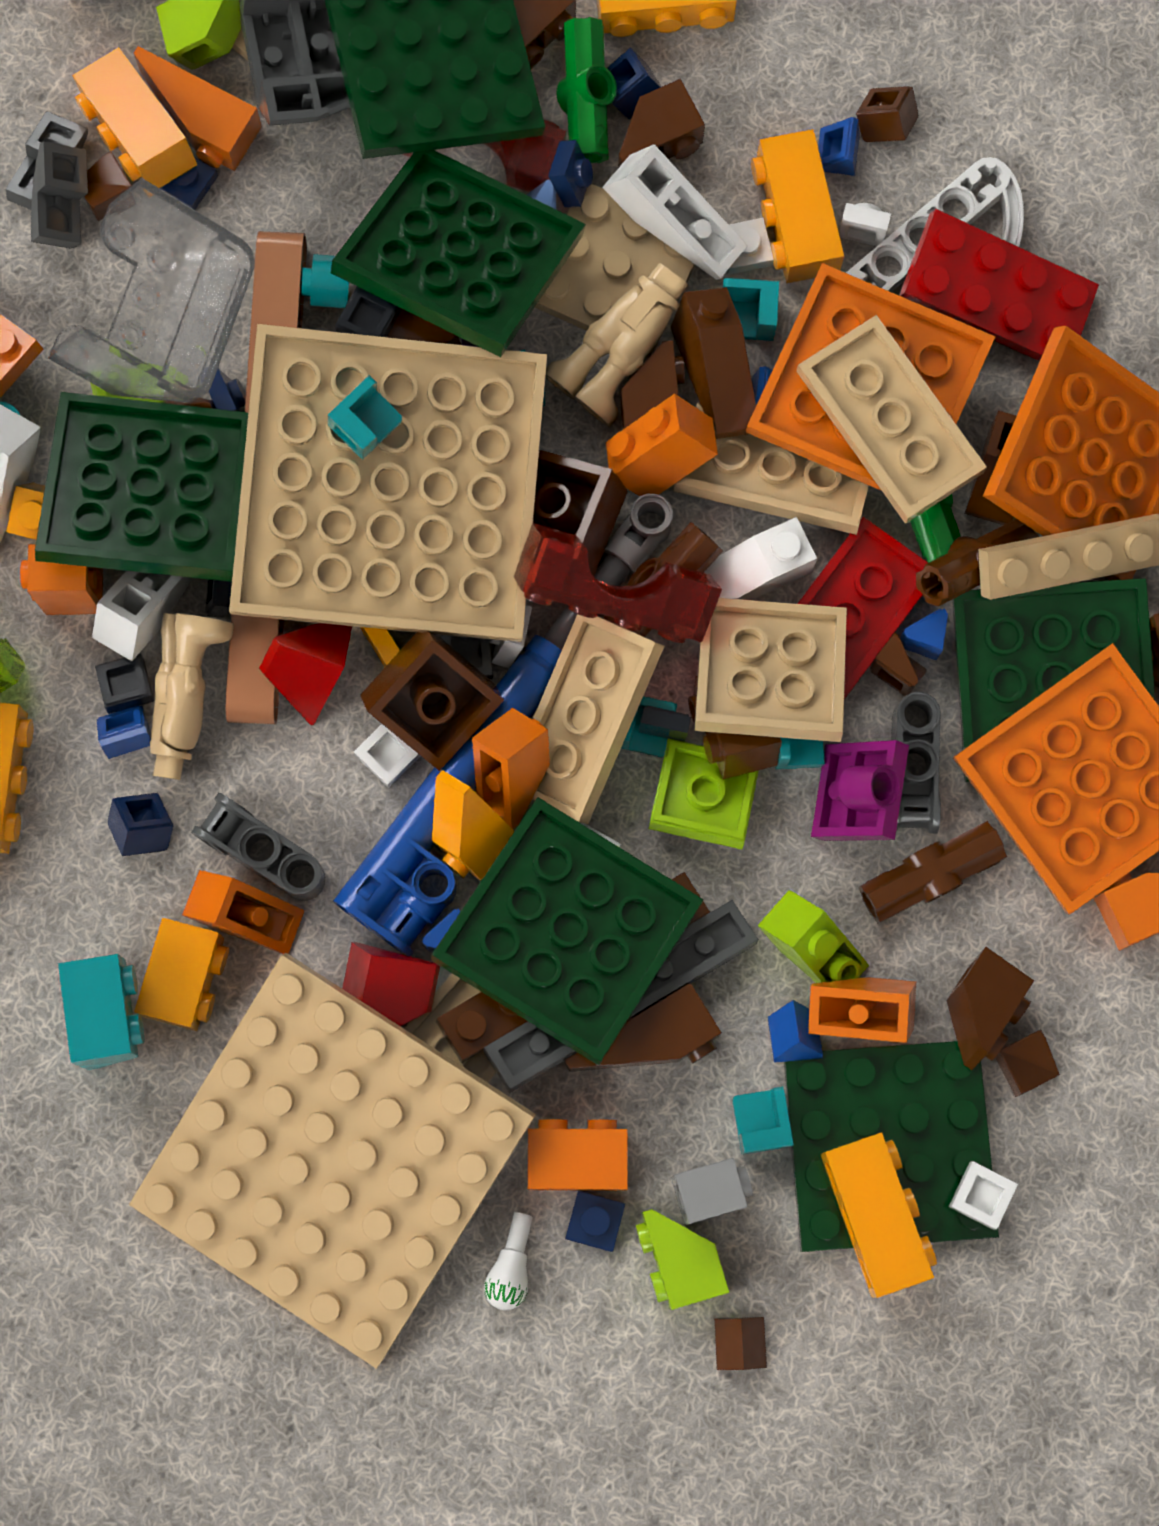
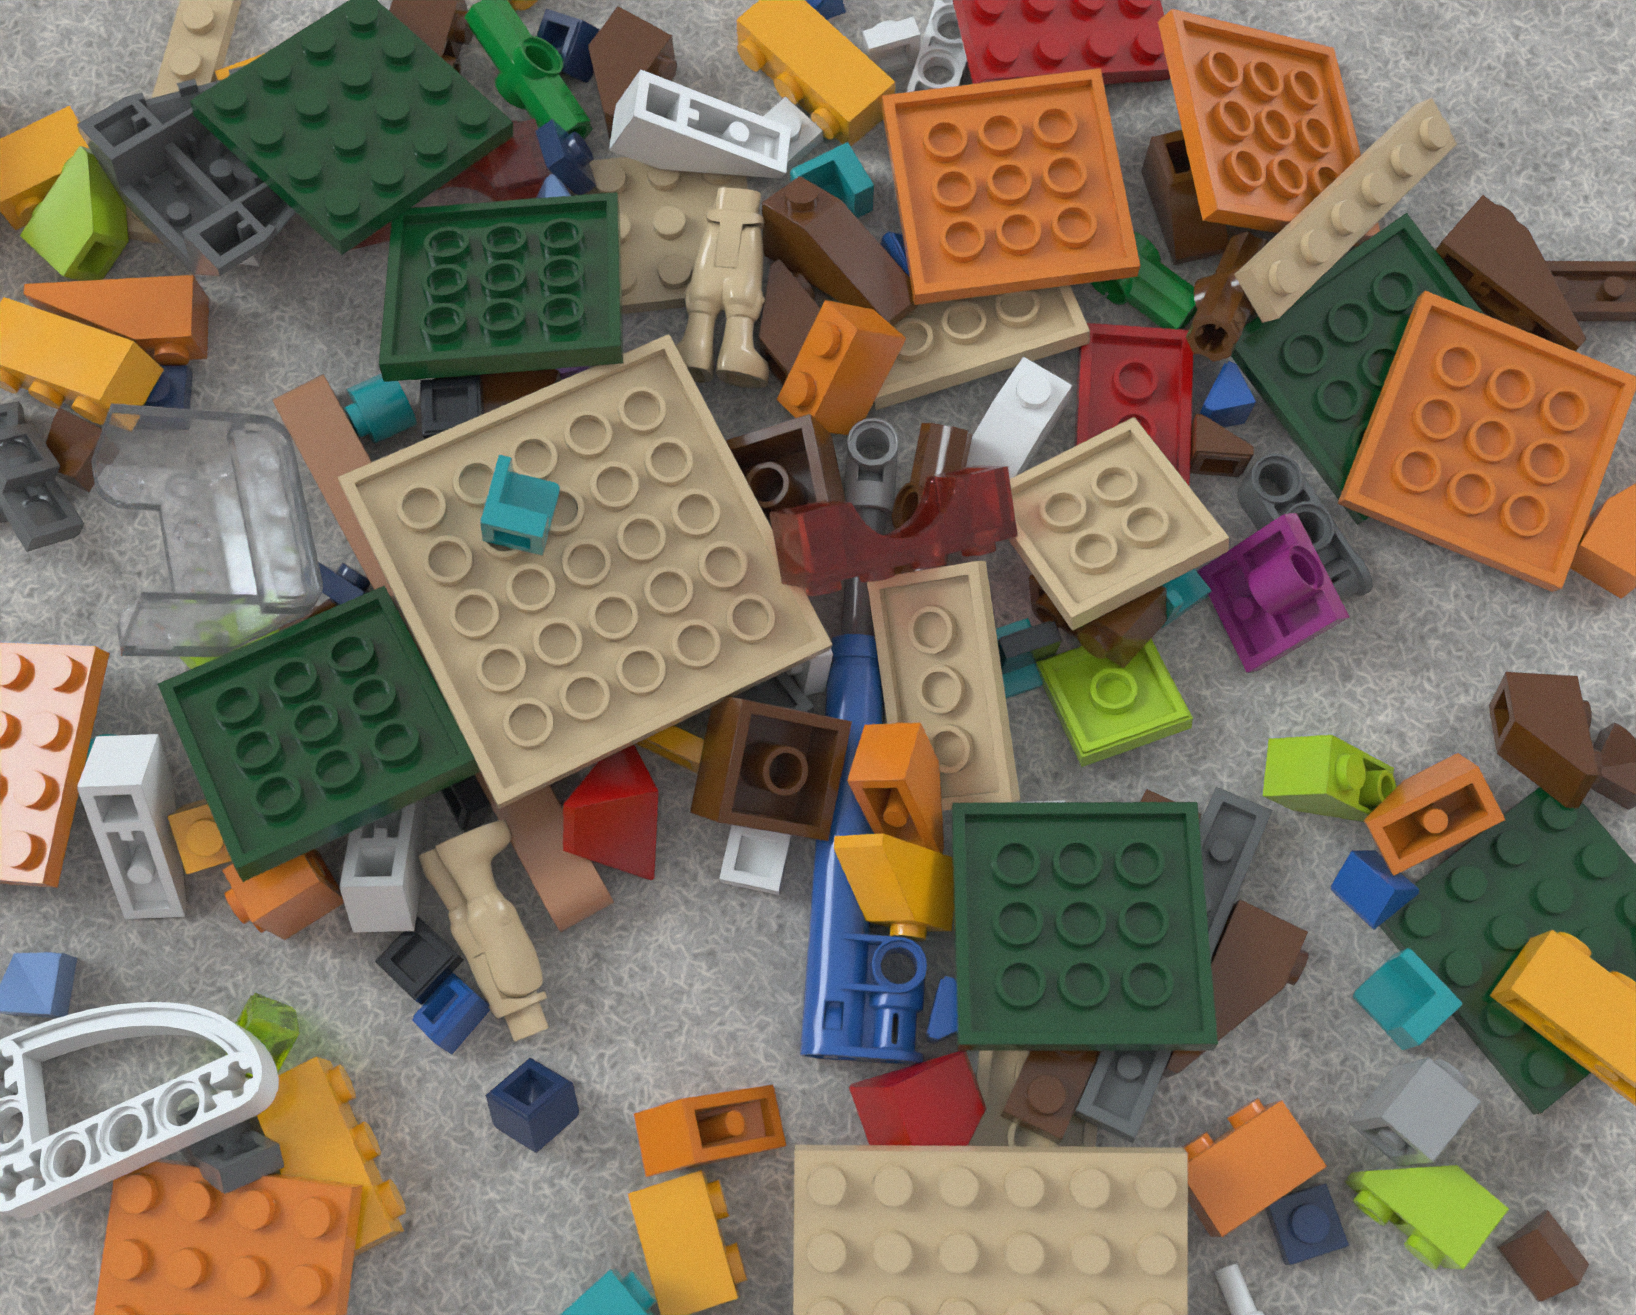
camera: 30 degrees left, 5 degrees down
(235, 830) = (651, 1043): dark grey piece -> none
(891, 419) = (1058, 200): tan plate -> none
(932, 872) = (1394, 633): reddish brown piece -> none

